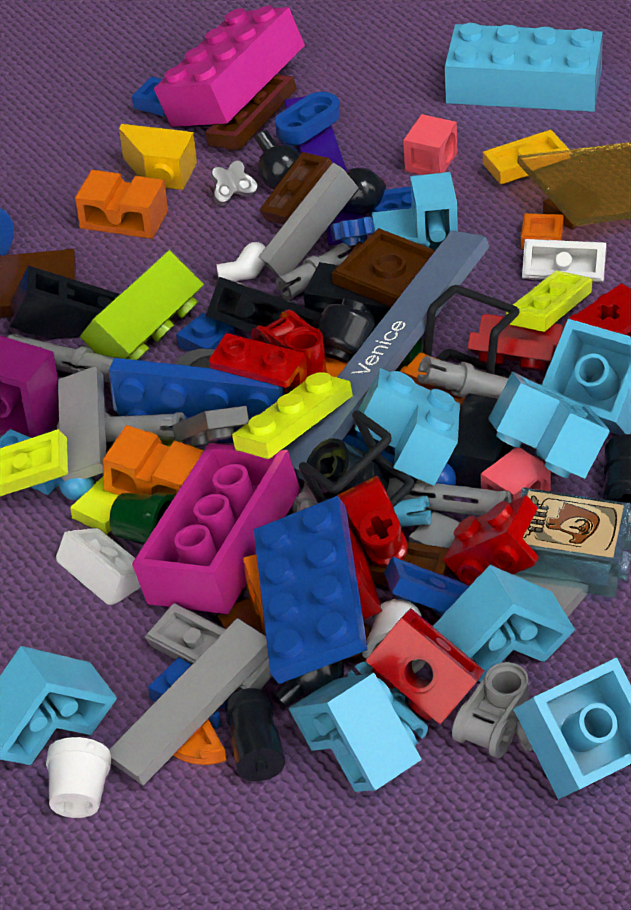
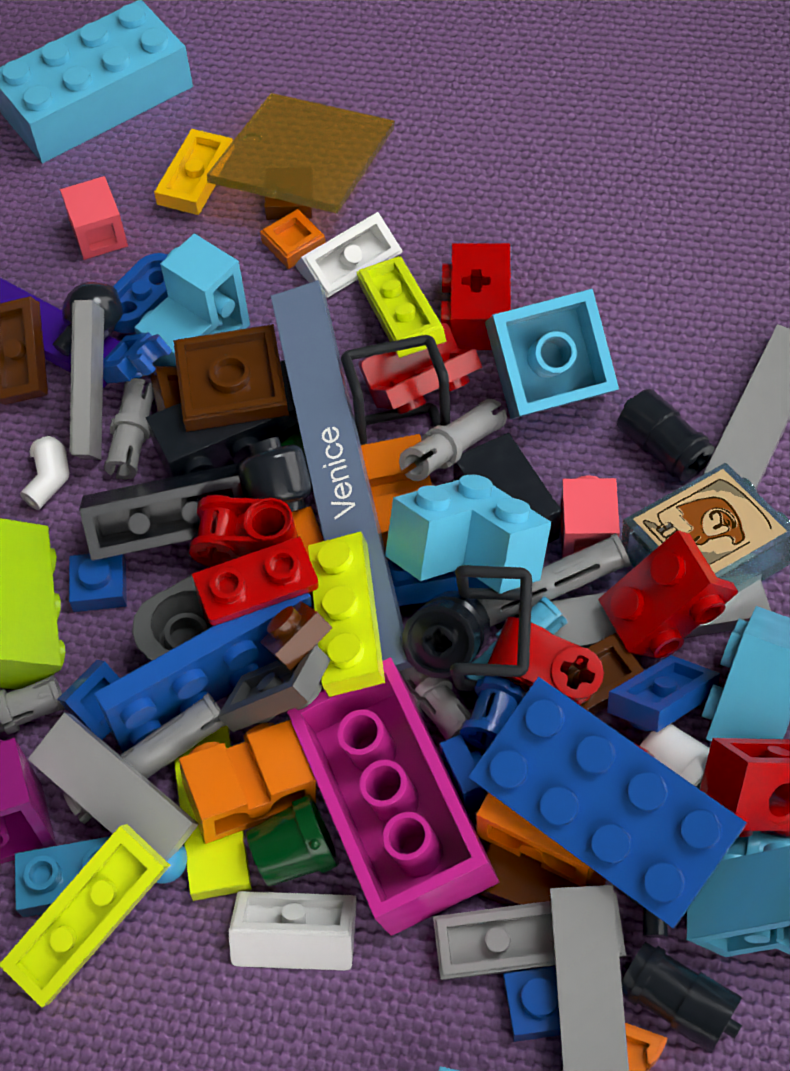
camera: 45 degrees left, 15 degrees up
(245, 393) = (294, 633): none -> reddish brown plate
(559, 428) = (591, 436): medium azure brick -> none

